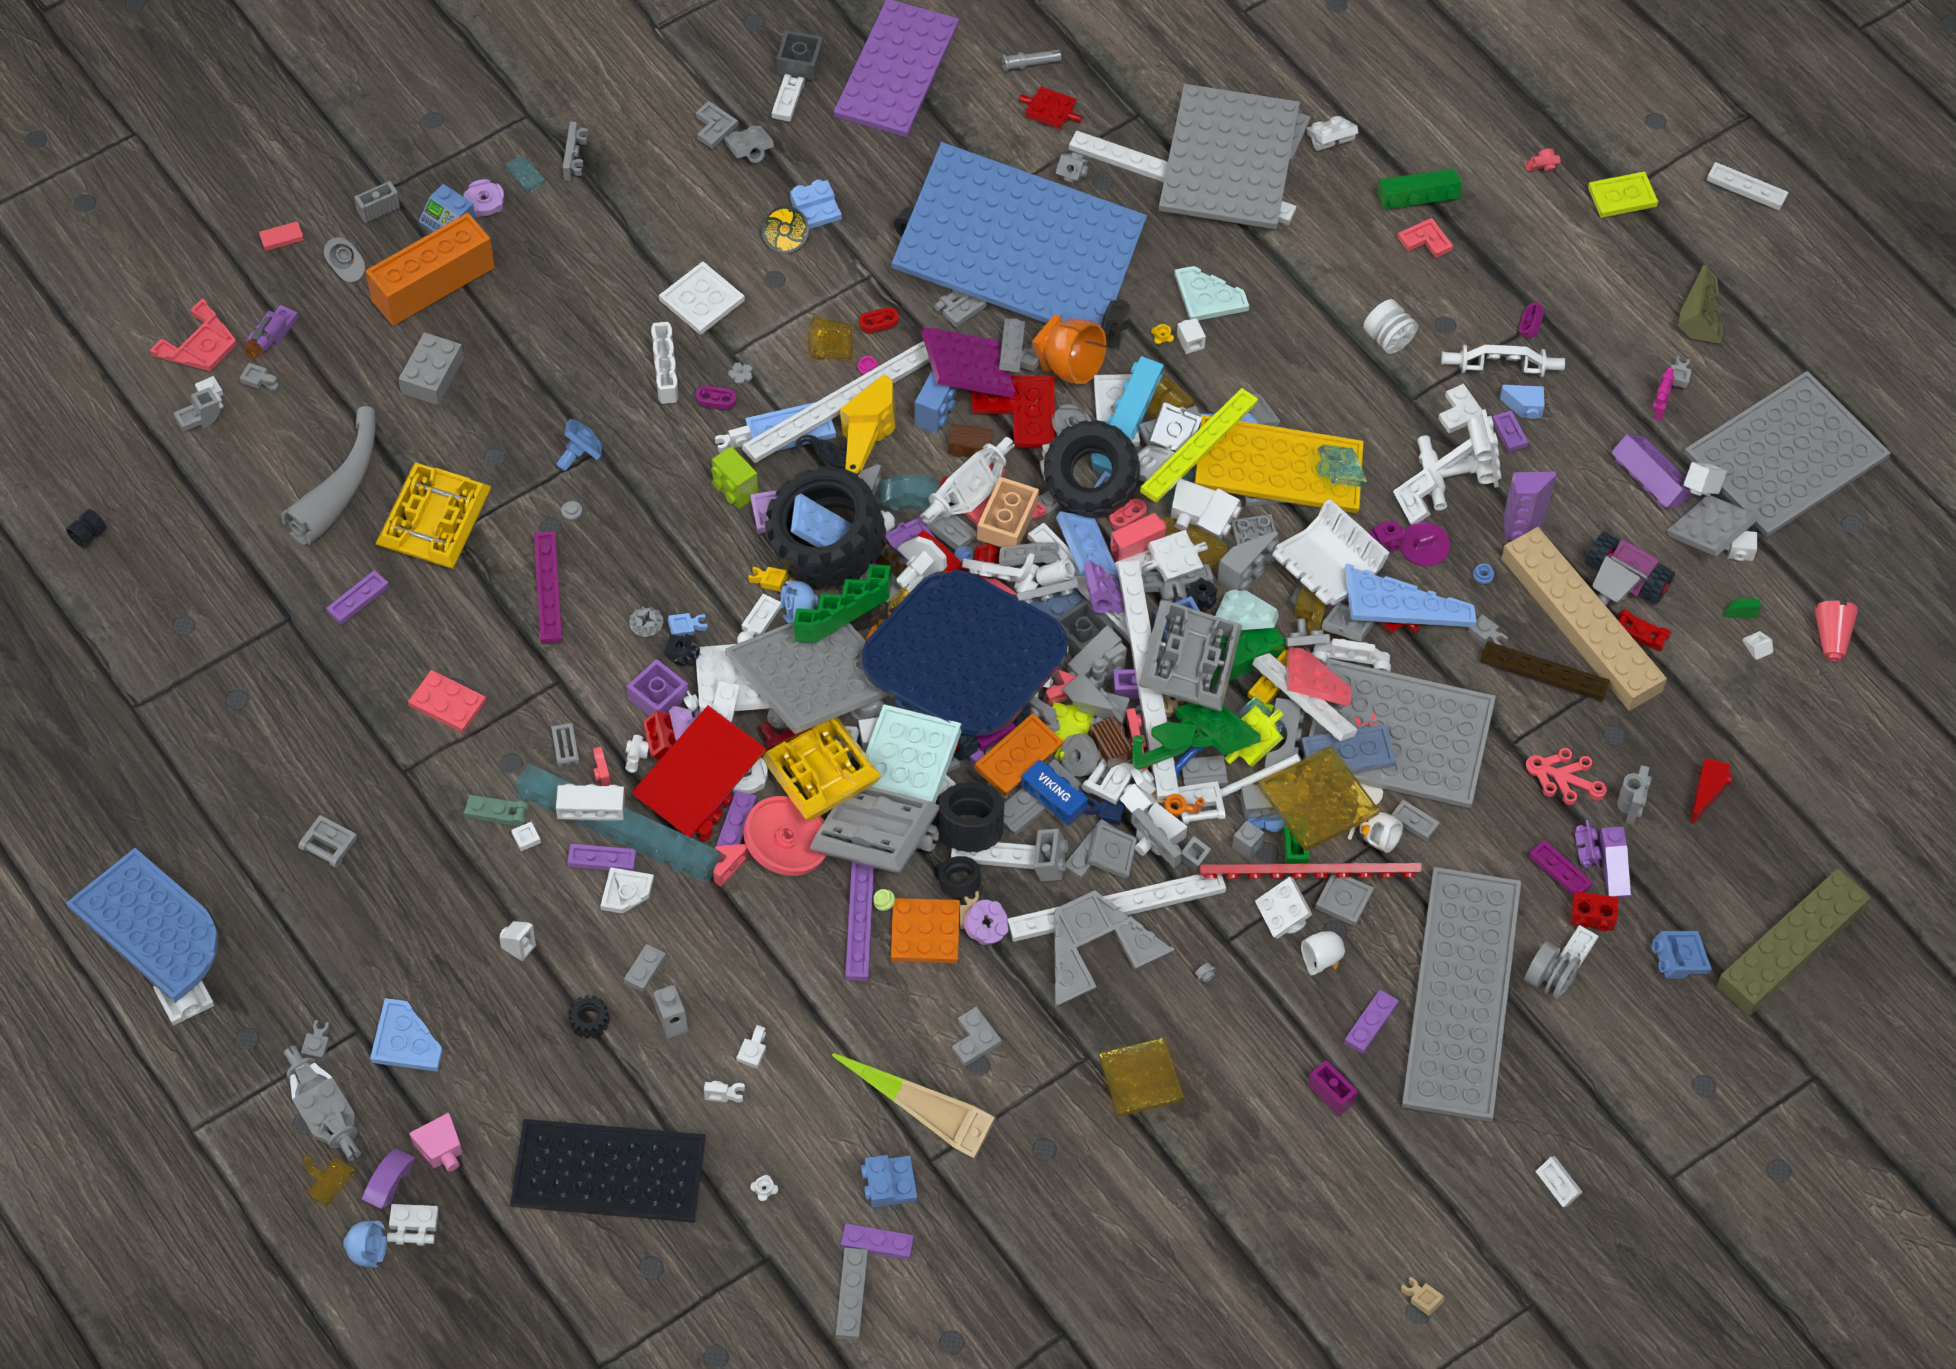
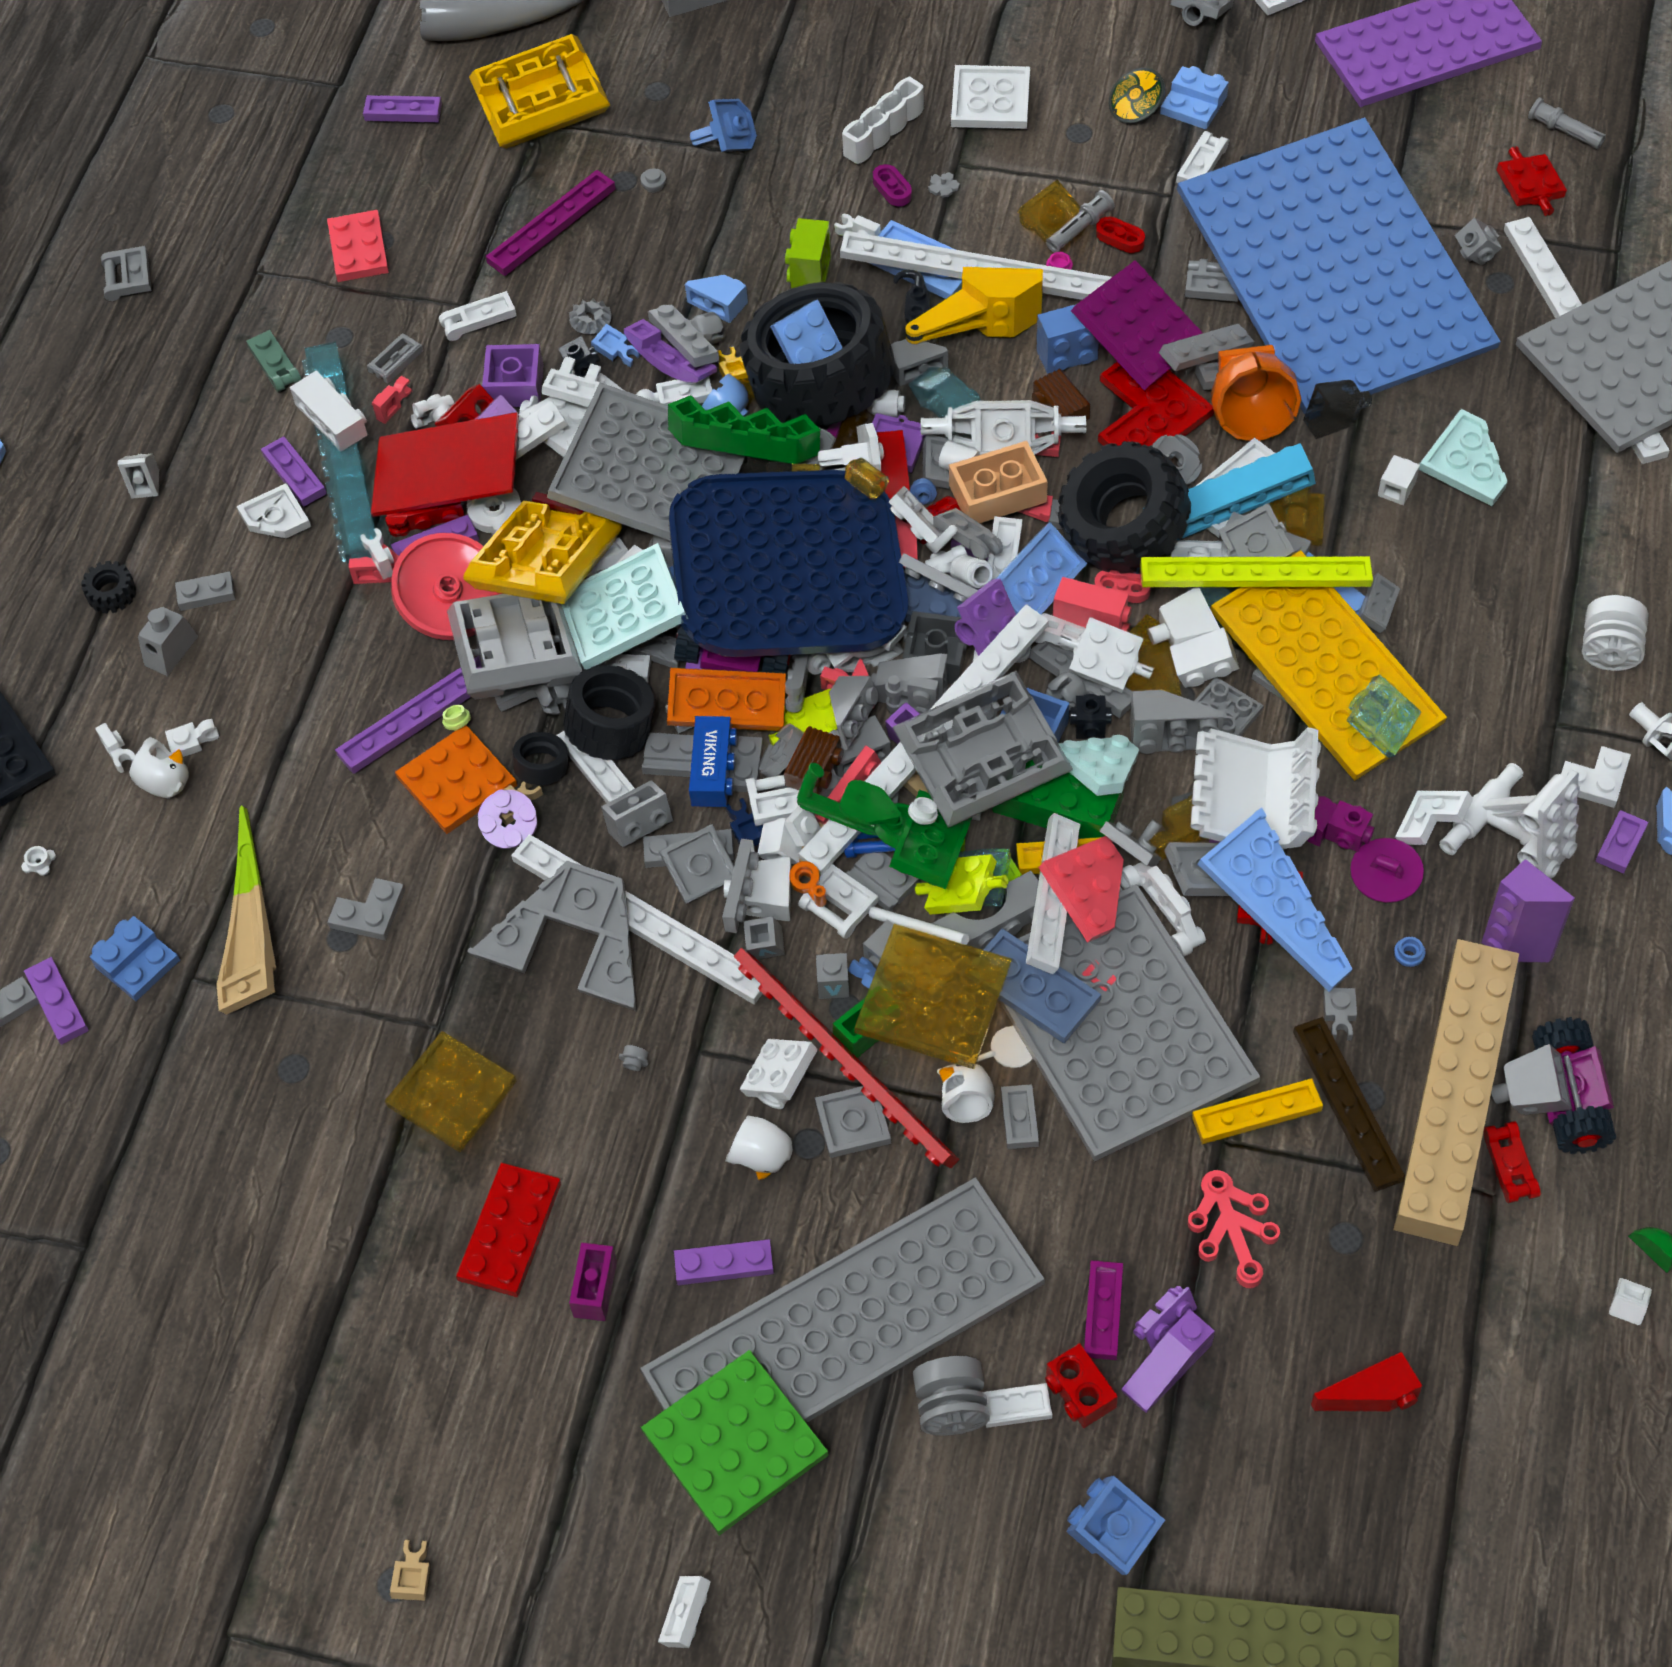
camera: 55 degrees right, 0 degrees up
(526, 836) = (263, 401): white plate -> none
(581, 677) = (477, 315): none -> white plate
(706, 546) = (718, 295): none -> light blue slope
(712, 665) = (569, 387): none -> white plate
(724, 580) = (689, 337): none -> light grey plate
(728, 605) = (648, 343): none -> medium lavender slope
(734, 852) = (381, 557): none -> white plate
(771, 1077) = (159, 775): none -> white piece
(853, 323) = (1088, 215): none -> light grey pin
(867, 239) = (1203, 156): none -> white plate
(947, 570) = (866, 478): none -> clear yellow brick
(966, 519) = (954, 453): none -> white brick
(1160, 330) = (1374, 457): yellow plate -> none
(1200, 714) = (923, 811): none -> white plate
(1255, 1110) = (509, 1230): none -> red plate
(1487, 1088) = (734, 1442): none -> bright green plate
(1511, 713) = (1257, 1111): none -> yellow plate
(1634, 794) = (1274, 1311): light grey plate -> none

